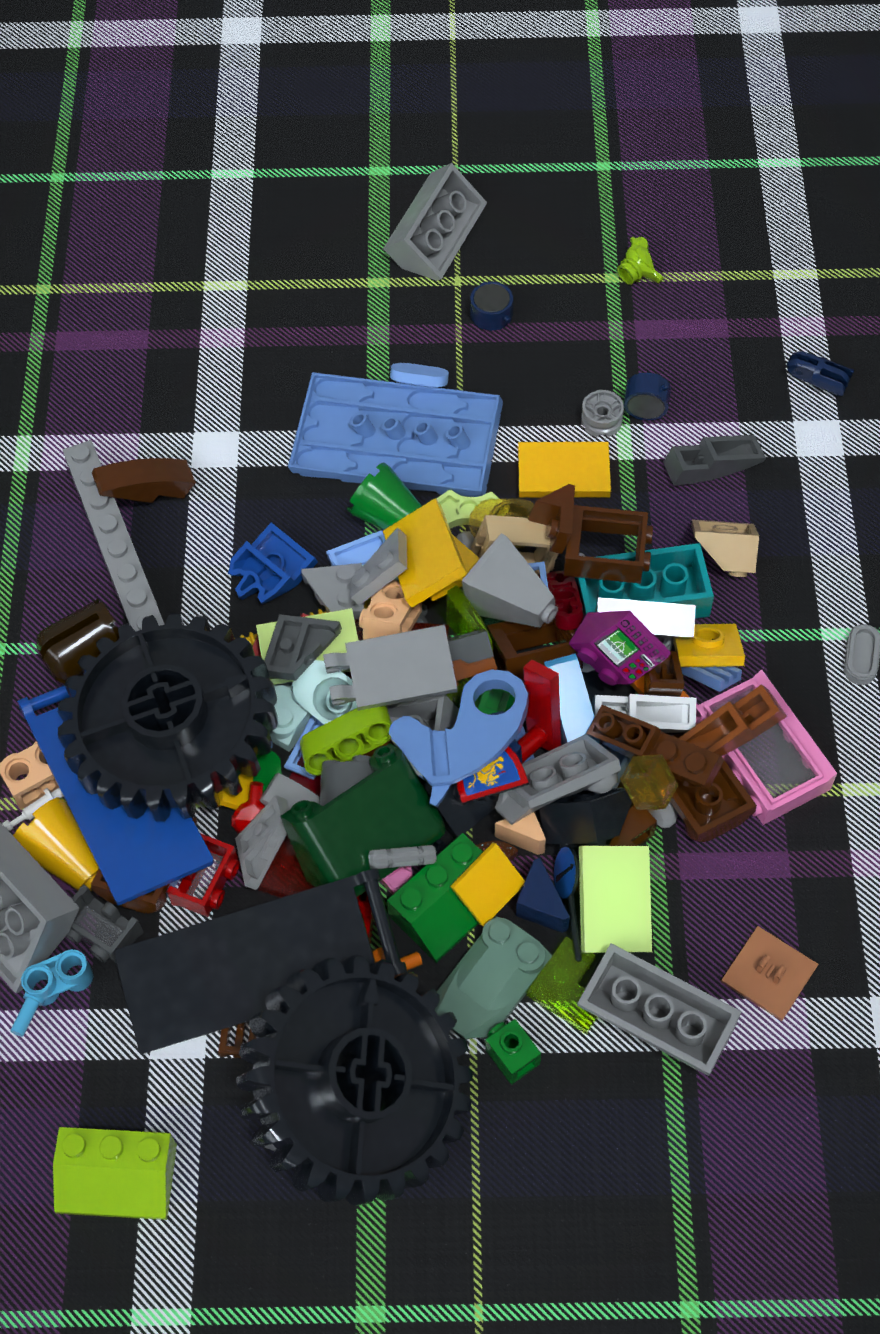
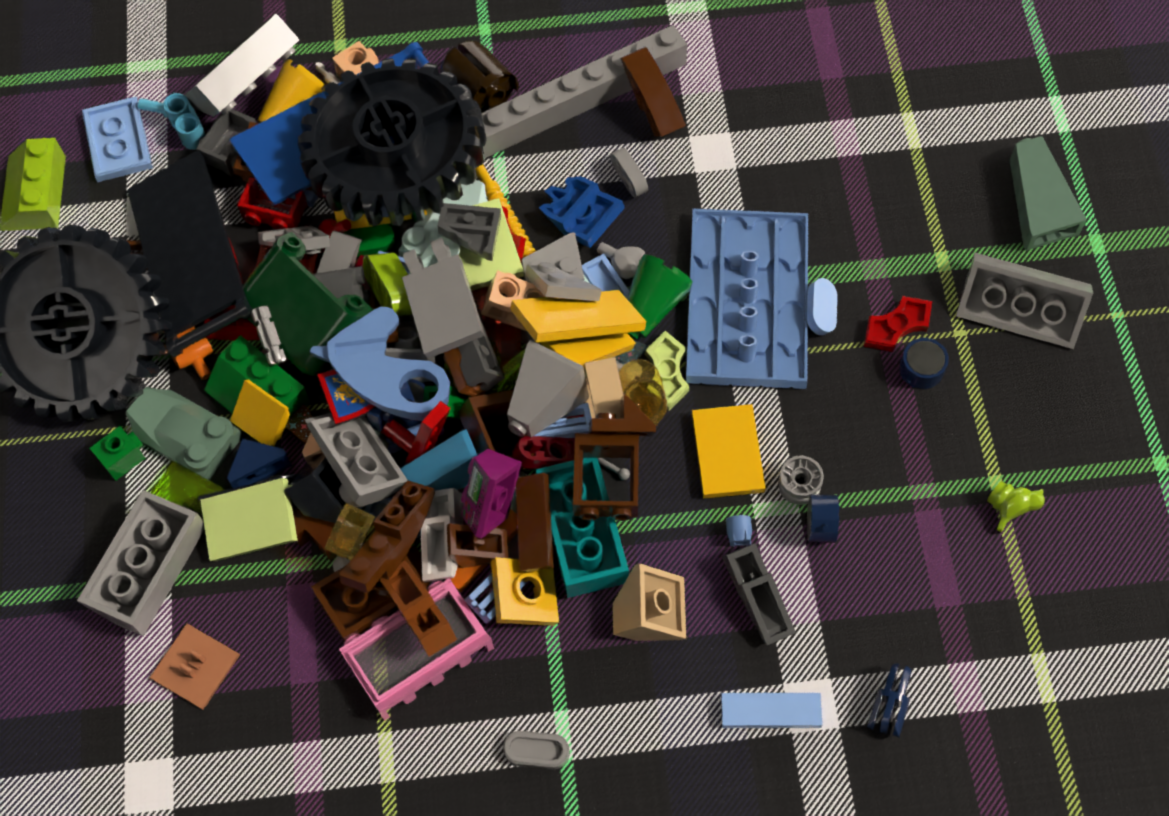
camera: 85 degrees right, 5 degrees up
(58, 1069) = (117, 139): none -> light blue tile
(231, 518) = (629, 172): none -> light grey beam
(325, 194) = (1043, 196): none -> sand green slope
(334, 534) = (623, 259): none -> light grey rock
(449, 331) = (888, 329): none -> red tile
(650, 467) = (739, 530): none -> medium blue hose
(825, 465) = (771, 710): none -> light blue tile

